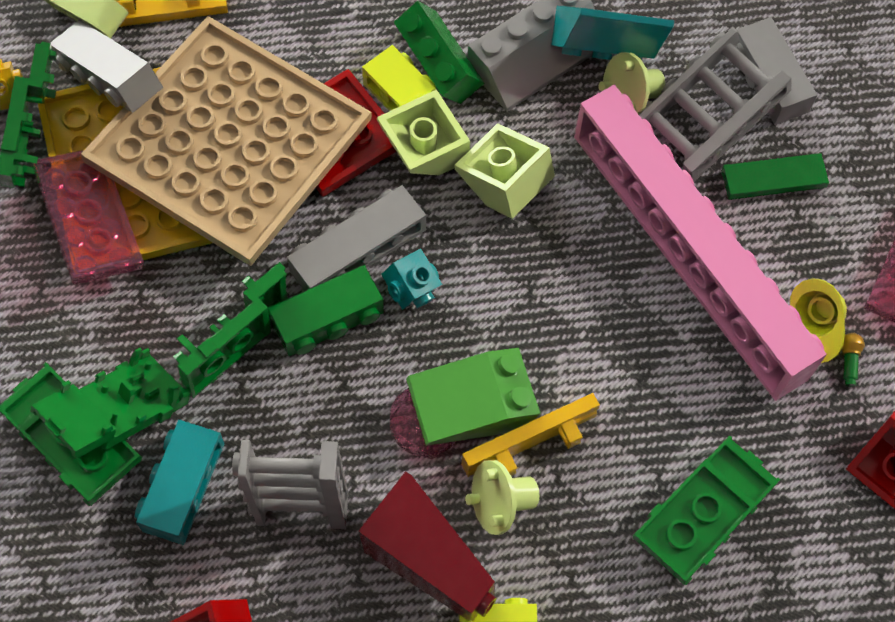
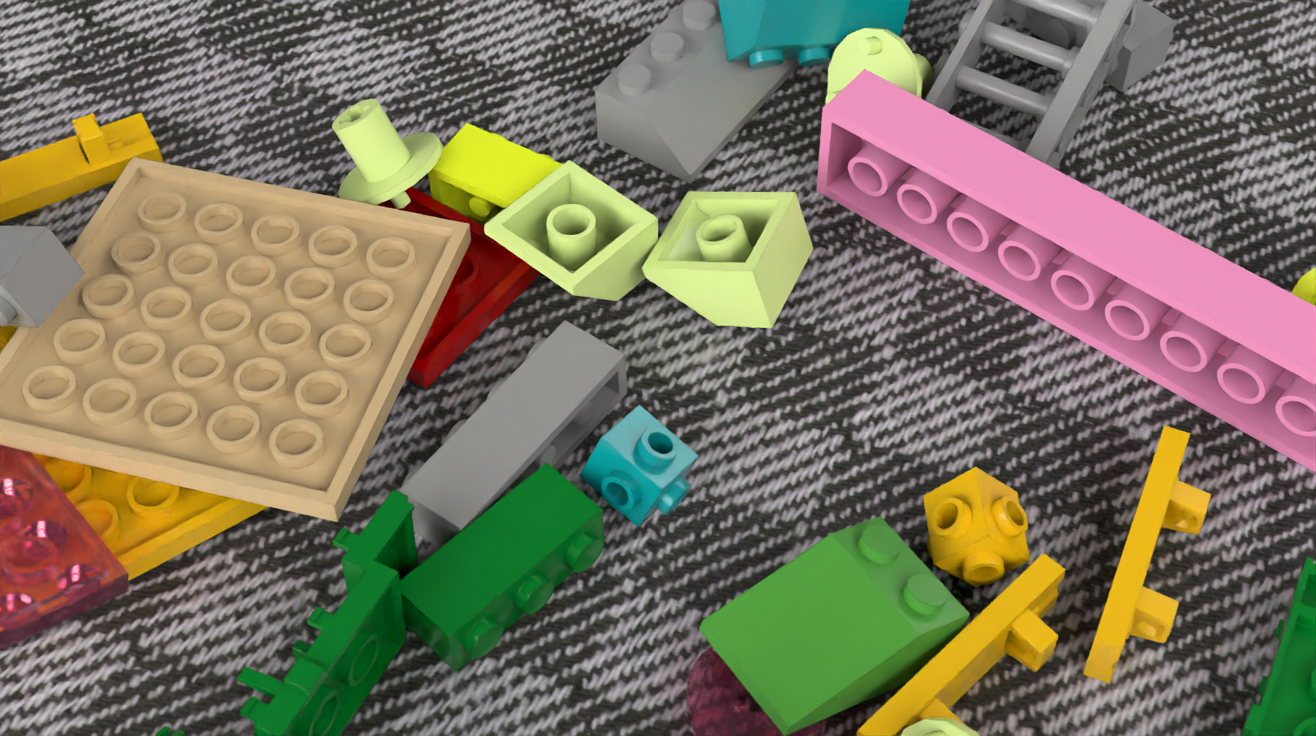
camera: 15 degrees left, 15 degrees down
(340, 55) = (383, 159): none -> yellowish green piece
(438, 52) = (547, 116): green brick -> none
(567, 367) = (976, 528): none -> yellow brick
(626, 429) = (1130, 605): none -> yellow hinge
(774, 176) = (1164, 156): green tile -> none

